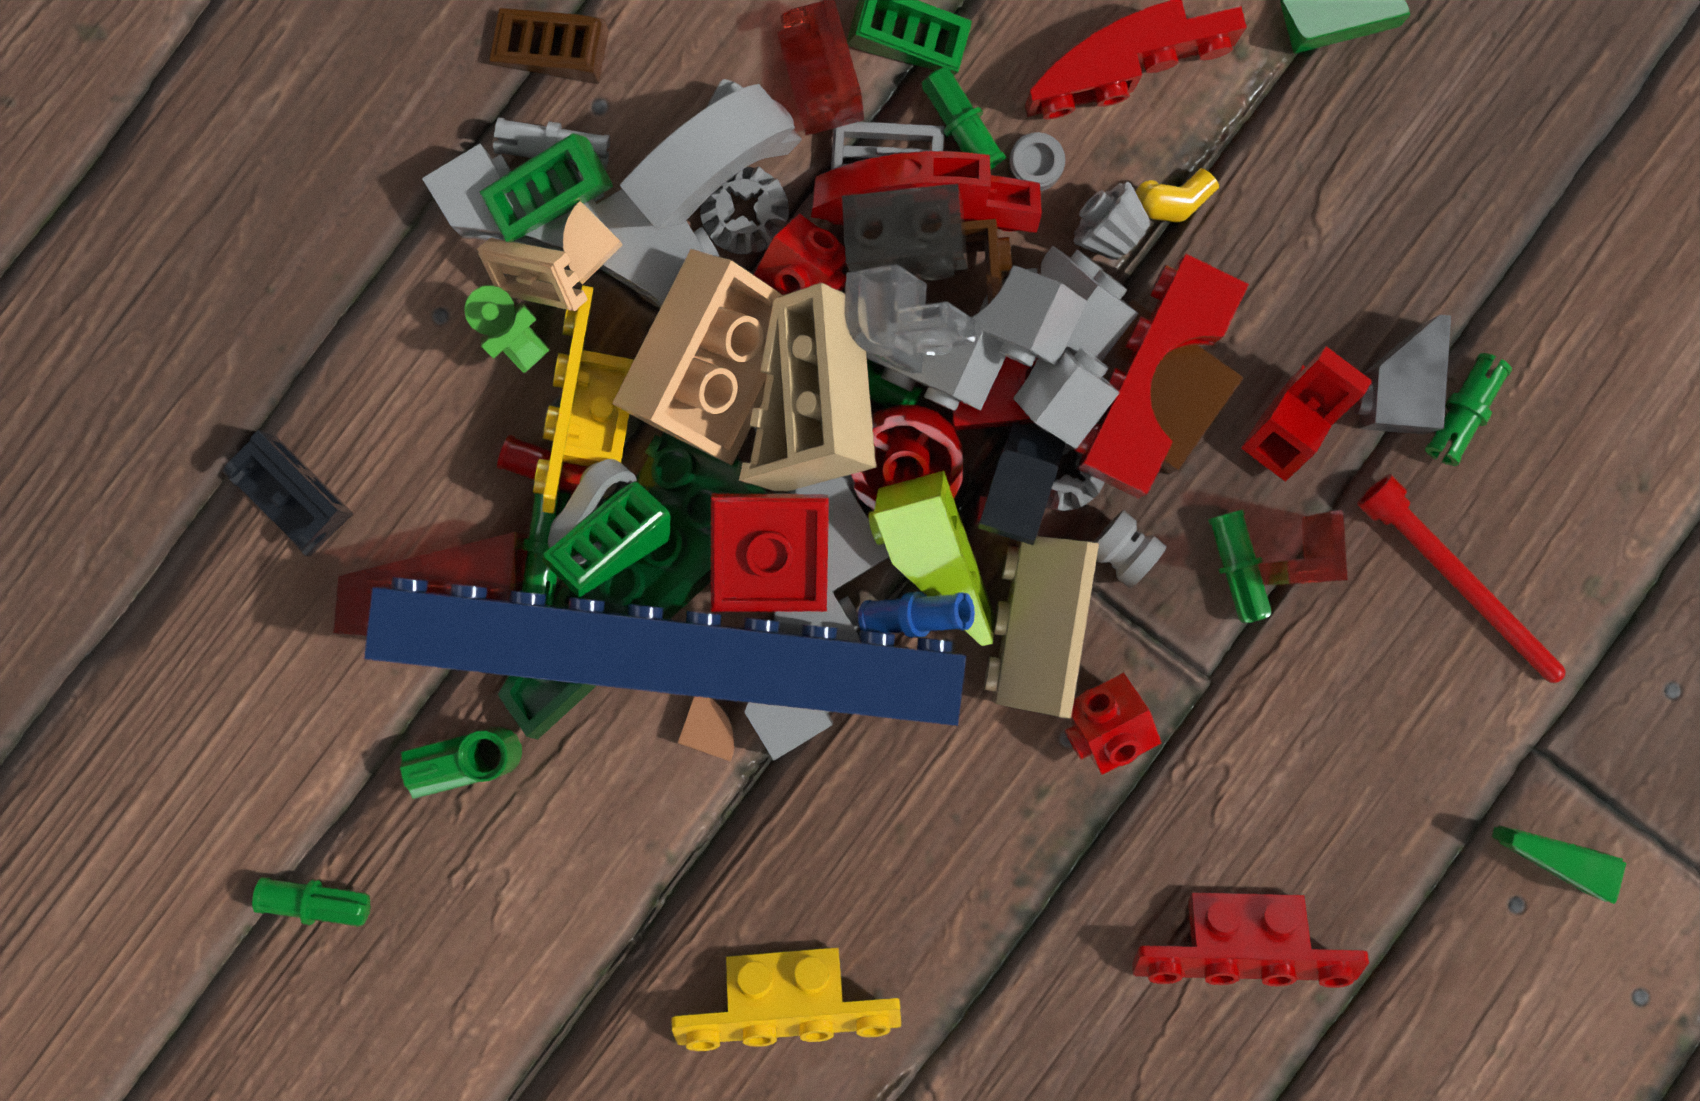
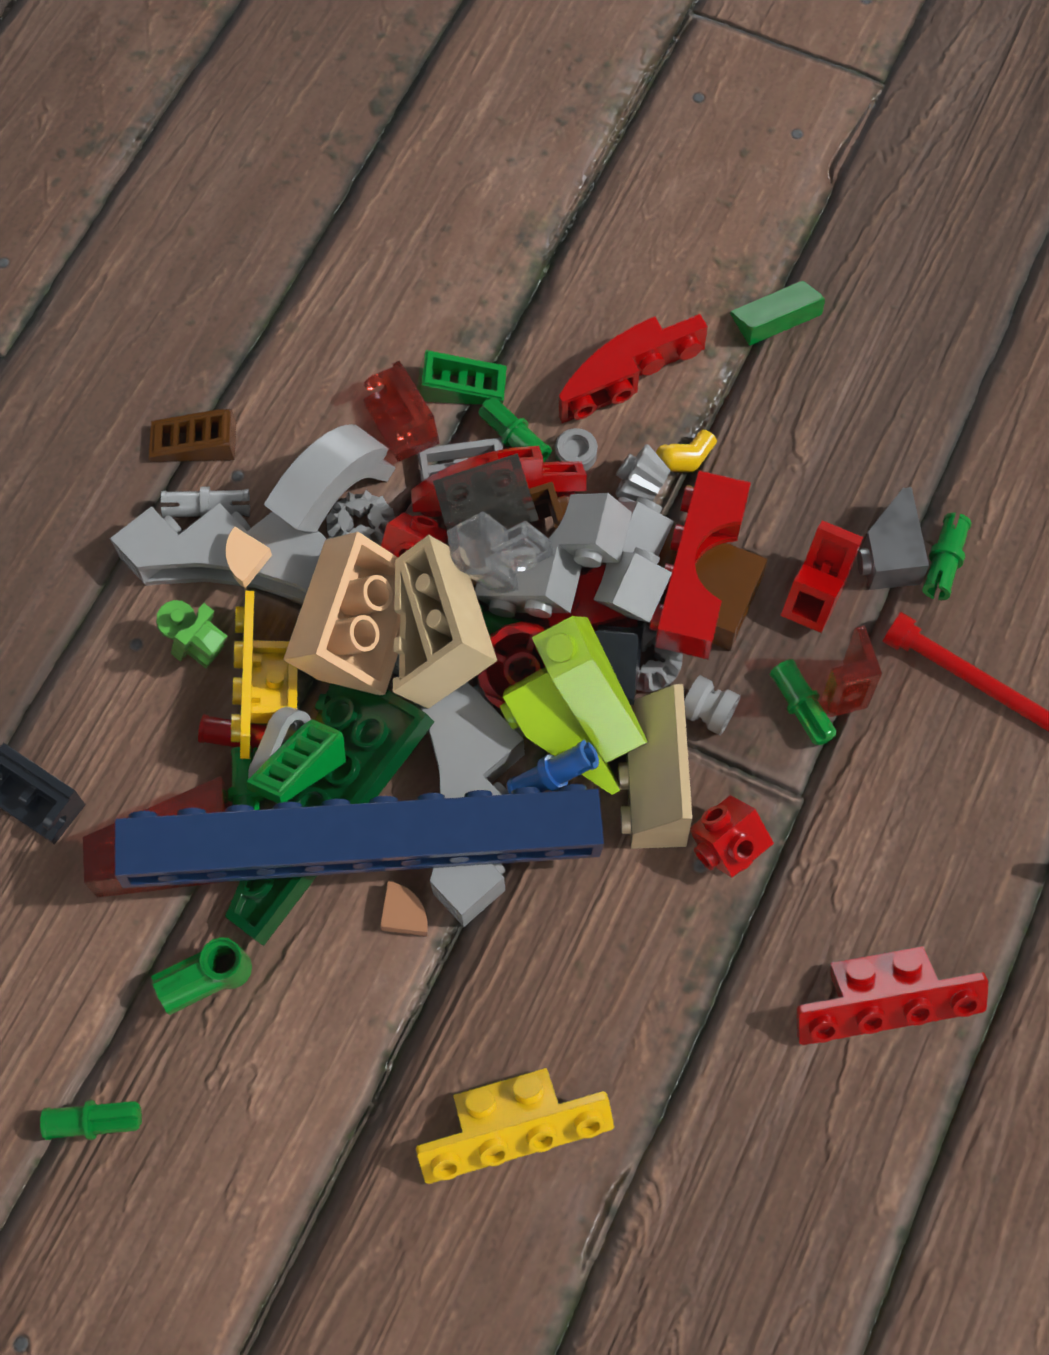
camera: 10 degrees left, 20 degrees down
(532, 264) = (217, 569): light nougat tile -> none
(555, 157) = (196, 513): green slope -> none
(769, 552) = (427, 747): red tile -> none
(983, 519) = (590, 686): none -> lime slope

